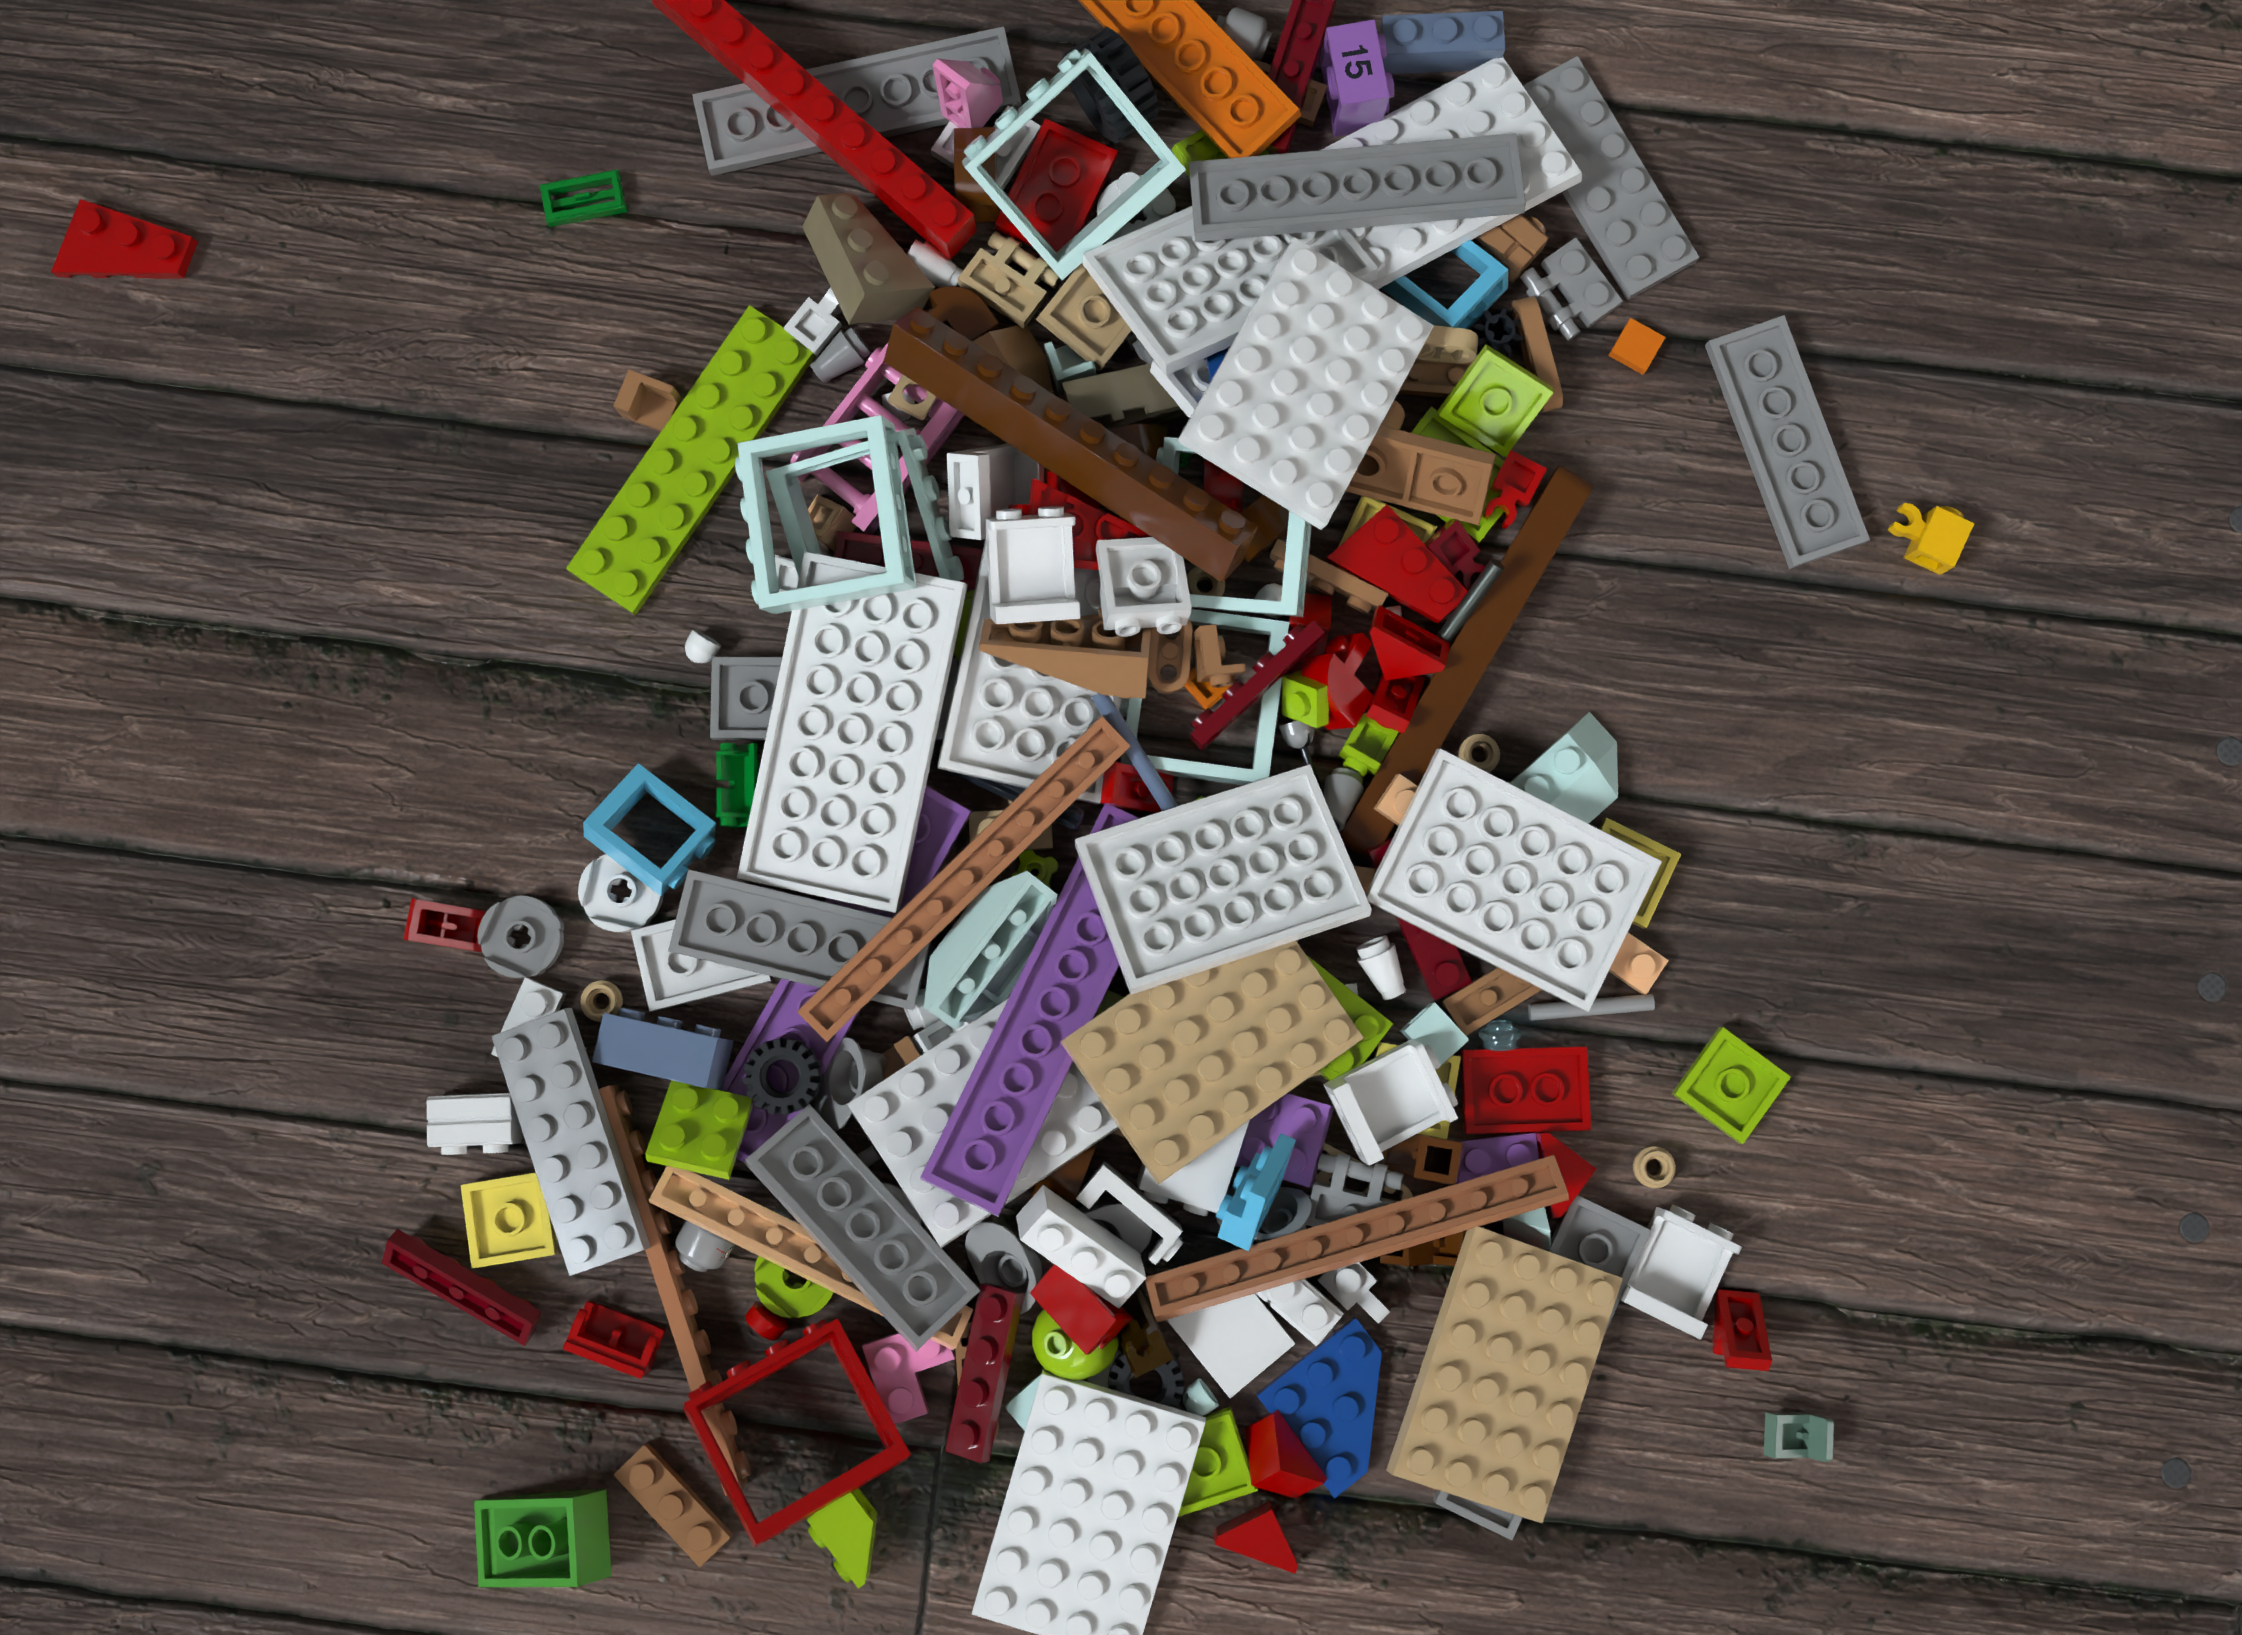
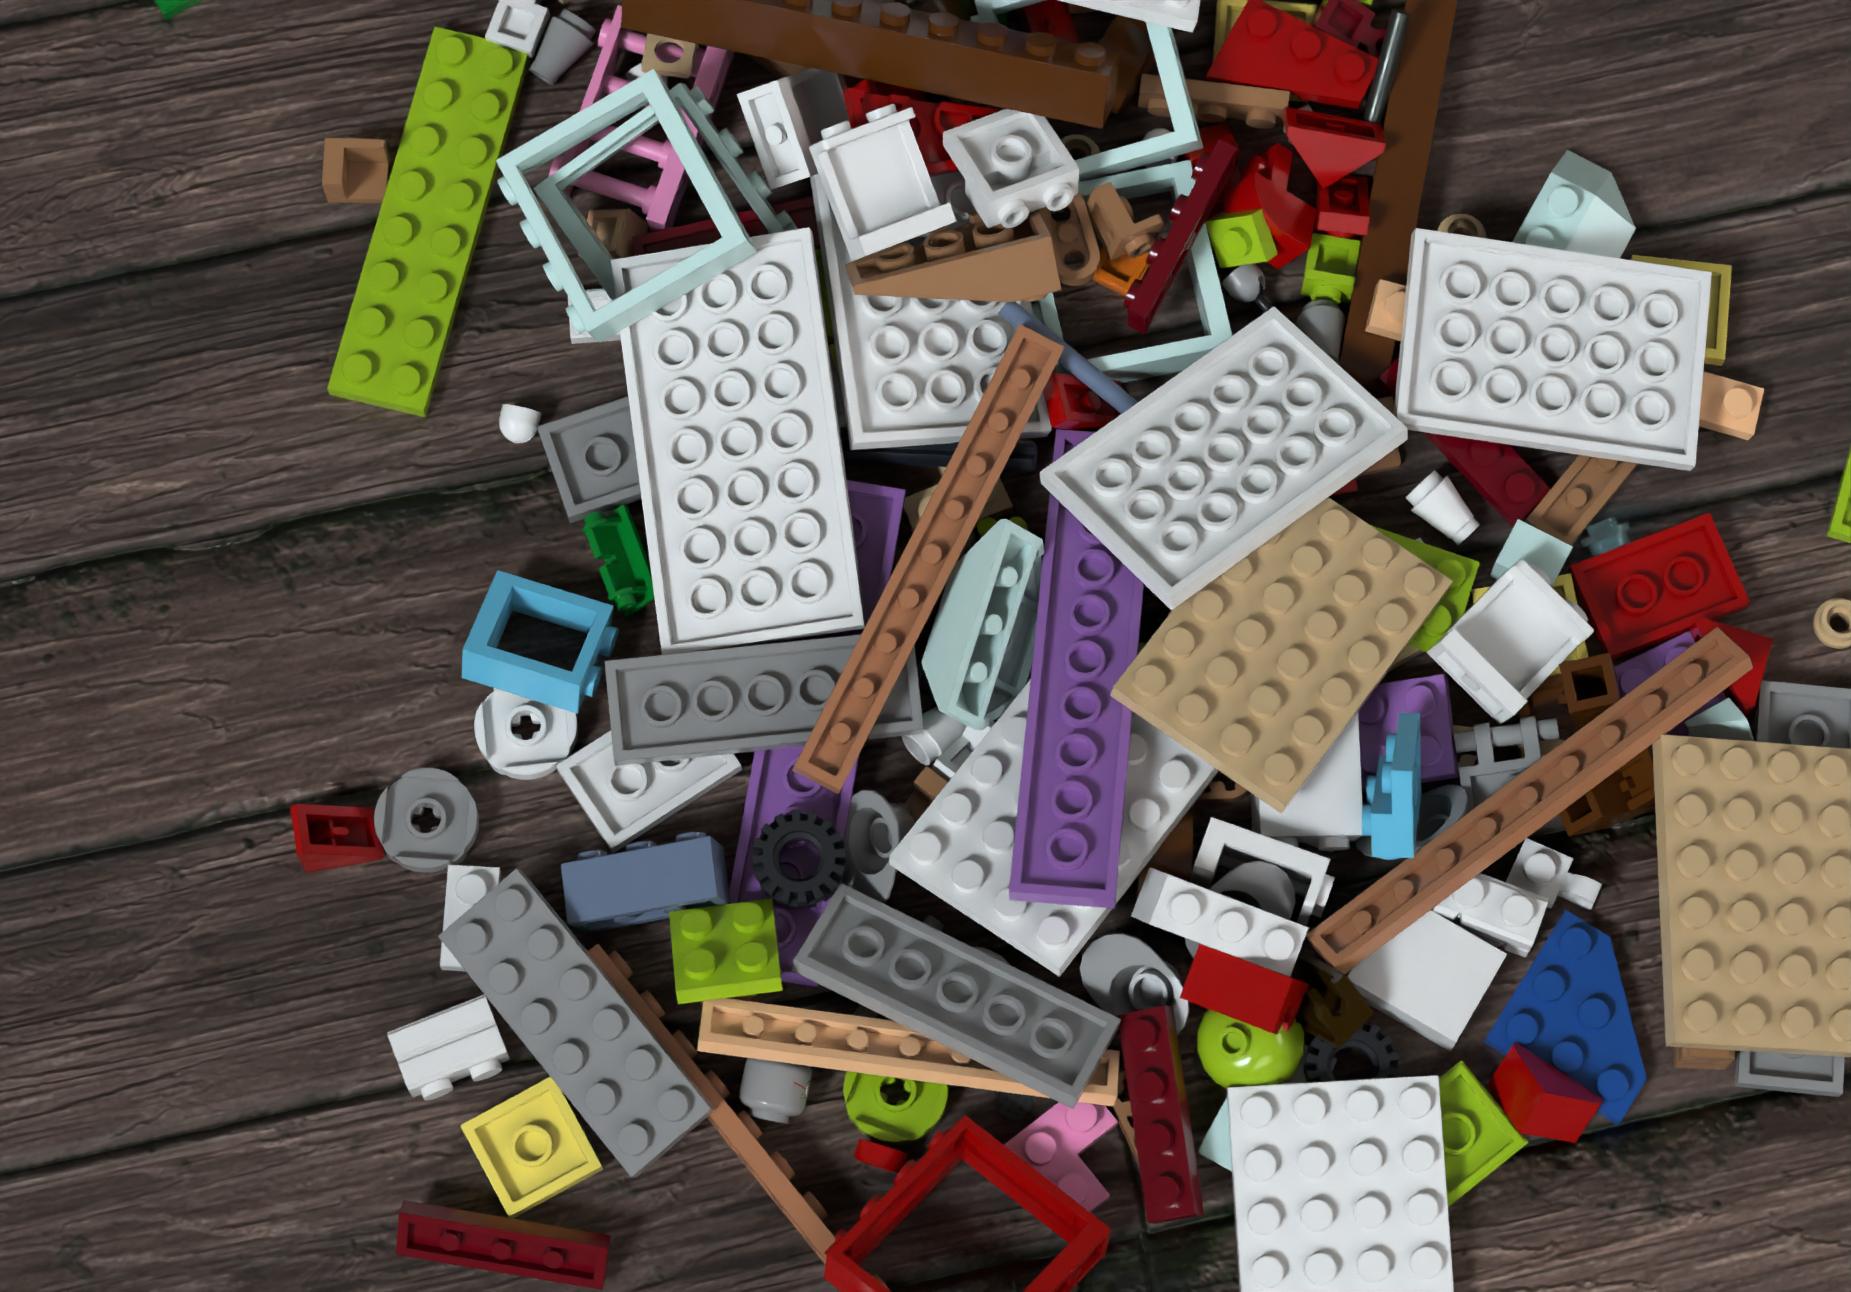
camera: 20 degrees left, 10 degrees down
(589, 997) = (536, 851): tan plate -> none
(614, 1339) = (708, 1242): red hinge -> none
(1199, 1398) = (1420, 1062): light aqua hinge -> none
(1258, 1537) = (1553, 1195): red slope -> none
(1599, 1007) = (1702, 471): light grey bar -> none

